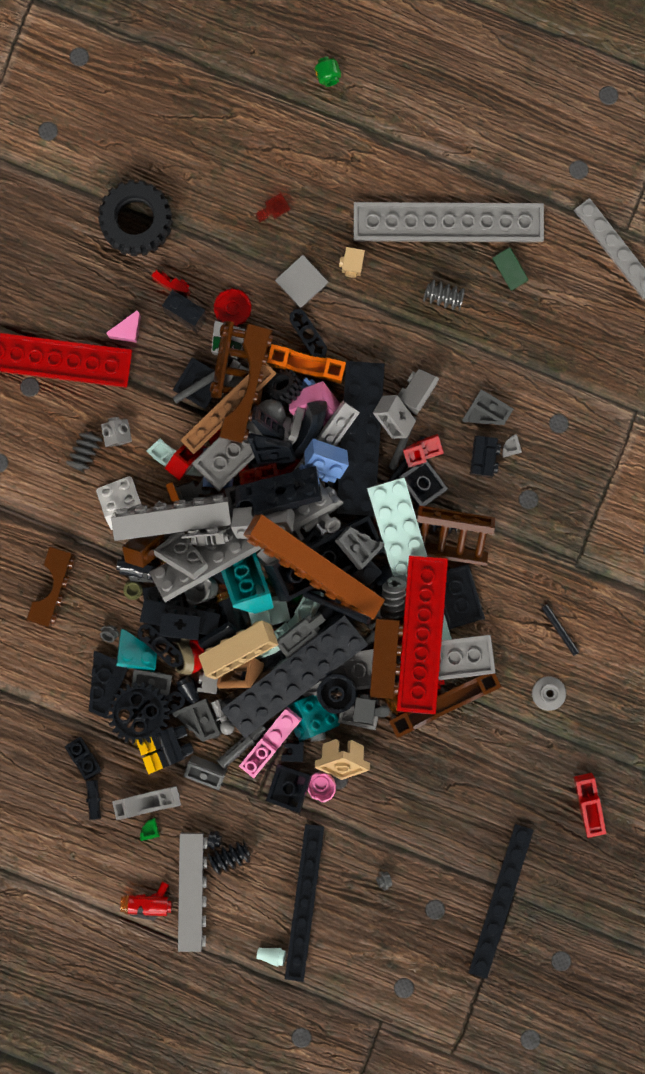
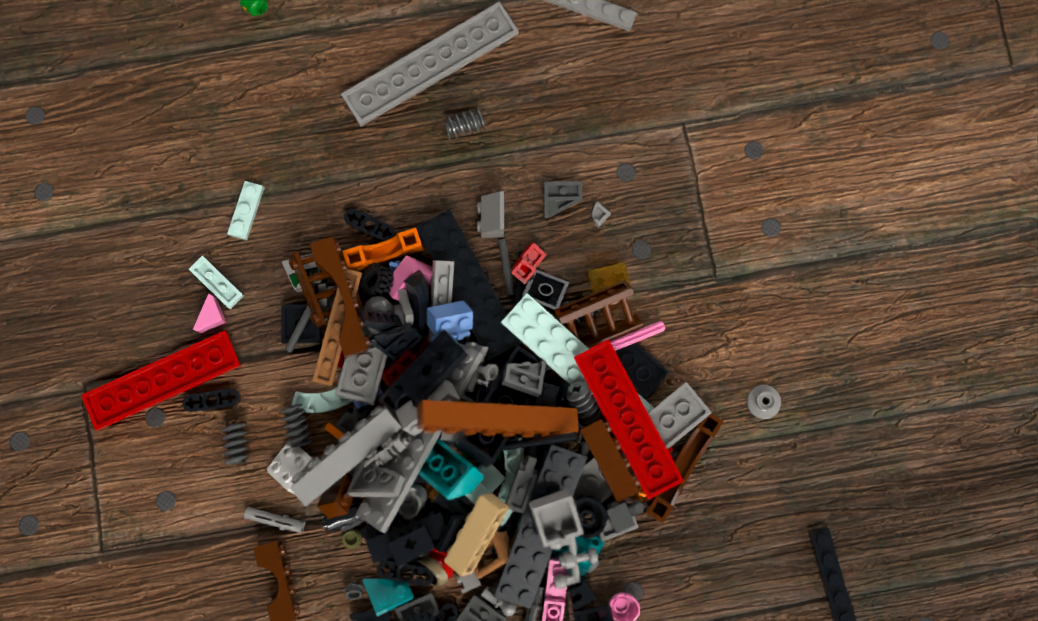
camera: 30 degrees left, 5 degrees down
(70, 401) = (197, 397): none -> black beam
(94, 551) = (274, 520): none -> light grey pin
(116, 432) = (253, 409): light grey brick -> none
(127, 194) = (144, 200): black tyre -> none
(143, 467) = (295, 425): none -> dark grey piece
(148, 303) = (216, 282): none -> light aqua plate
(178, 286) = (230, 254): red slope -> none
(182, 461) = (325, 400): red slope -> none
(184, 311) = (250, 269): black brick -> none
(188, 688) = (453, 595): black cone -> none
(210, 255) = (245, 210): none -> light aqua plate
(232, 306) = (291, 239): red tile -> none
(275, 207) = (276, 137): clear red plate -> none
(301, 281) = (337, 185): light grey tile -> none
(301, 718) = (570, 560): none -> light grey piece
(312, 673) = (555, 514): none -> light grey piece
(342, 764) = (629, 577): tan panel -> none
(352, 262) = (370, 143): tan brick -> none
(394, 416) = (486, 248): light grey brick -> none
(477, 571) = (638, 335): none -> bright pink axle
(483, 505) = (607, 276): none -> clear yellow brick
(484, 456) = (582, 236): black brick -> none
(510, 269) = (506, 70): dark green slope -> none
(561, 631) = (738, 341): black bar -> none
(590, 805) = (861, 475): red slope -> none

